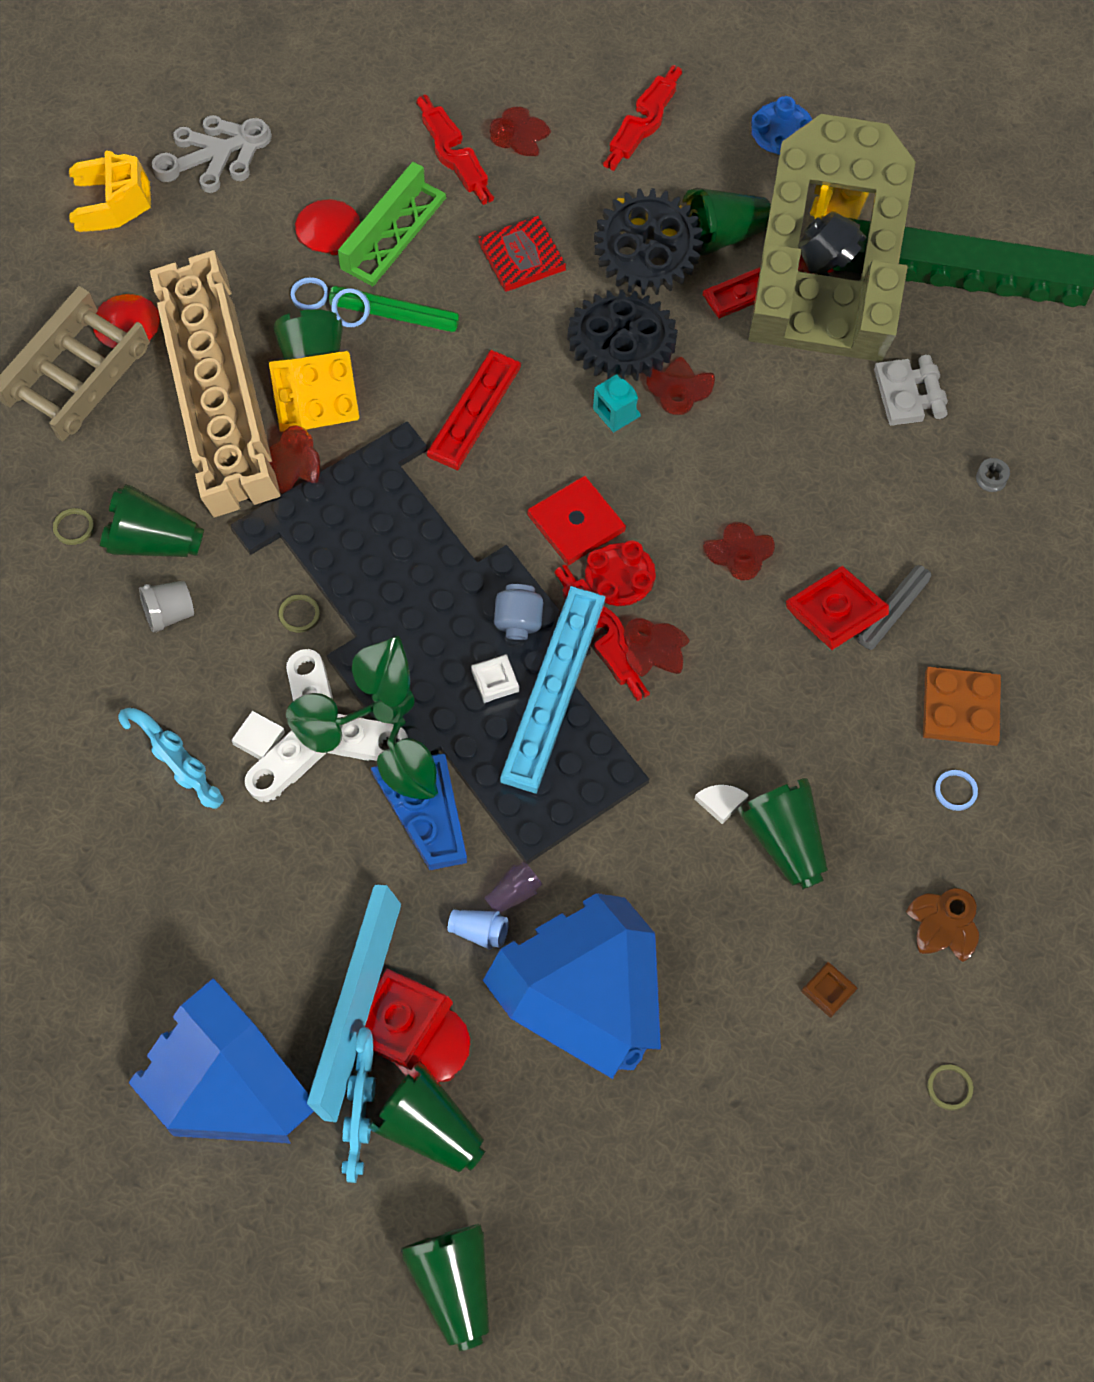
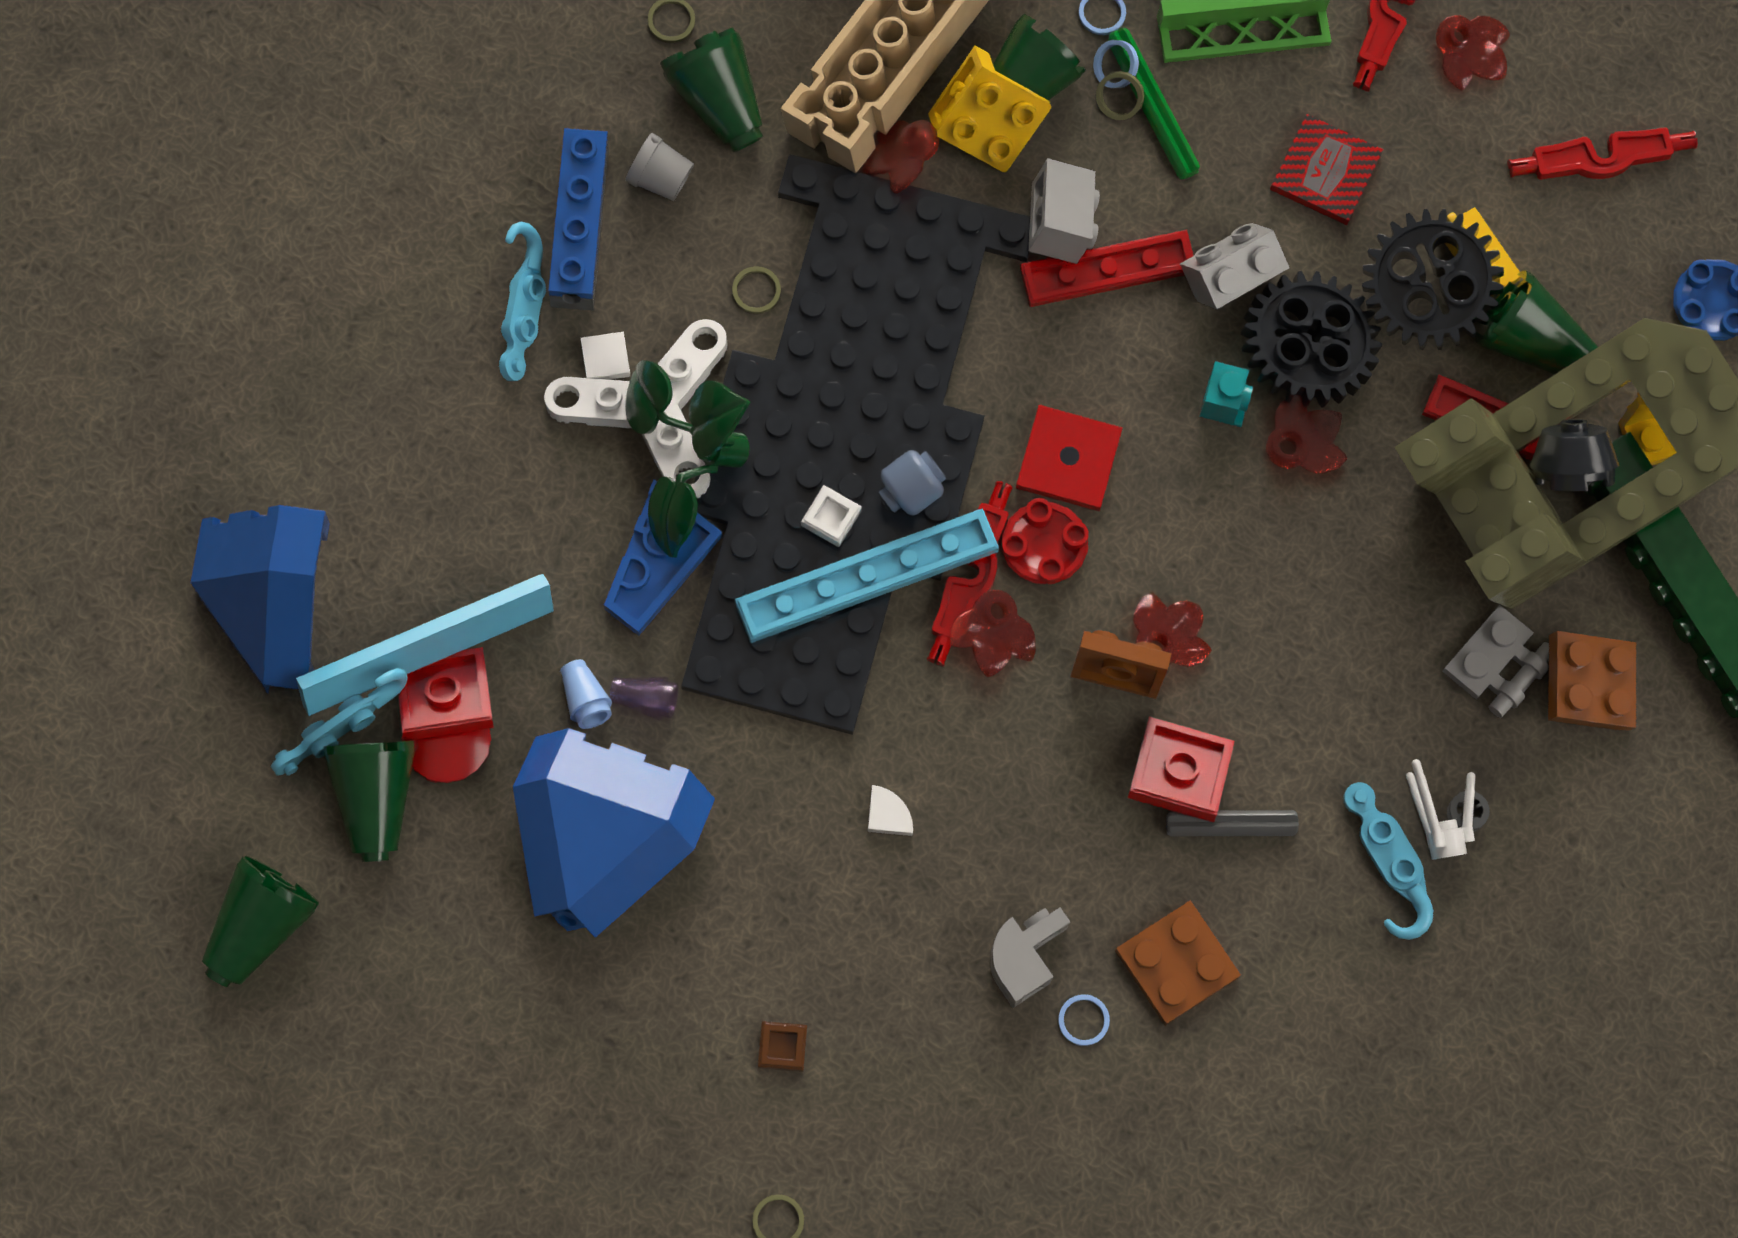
camera: 45 degrees right, 10 degrees up
(152, 677) = (578, 219): none -> blue piece
(389, 320) = (1103, 107): none -> olive piece
(418, 399) = (1063, 211): none -> light grey brick
(540, 337) = (1234, 265): none -> light grey brick
(744, 584) = (1121, 664): none -> dark orange plate
(789, 832) = (900, 896): dark green cone -> none
(885, 796) = (1014, 957): none -> light grey brick
(943, 928) = (928, 1104): reddish brown plate -> none
(965, 351) = (1592, 681): none -> dark orange plate
(989, 535) = (1392, 857): none -> medium azure piece
(1003, 496) = (1442, 837): none -> white plant

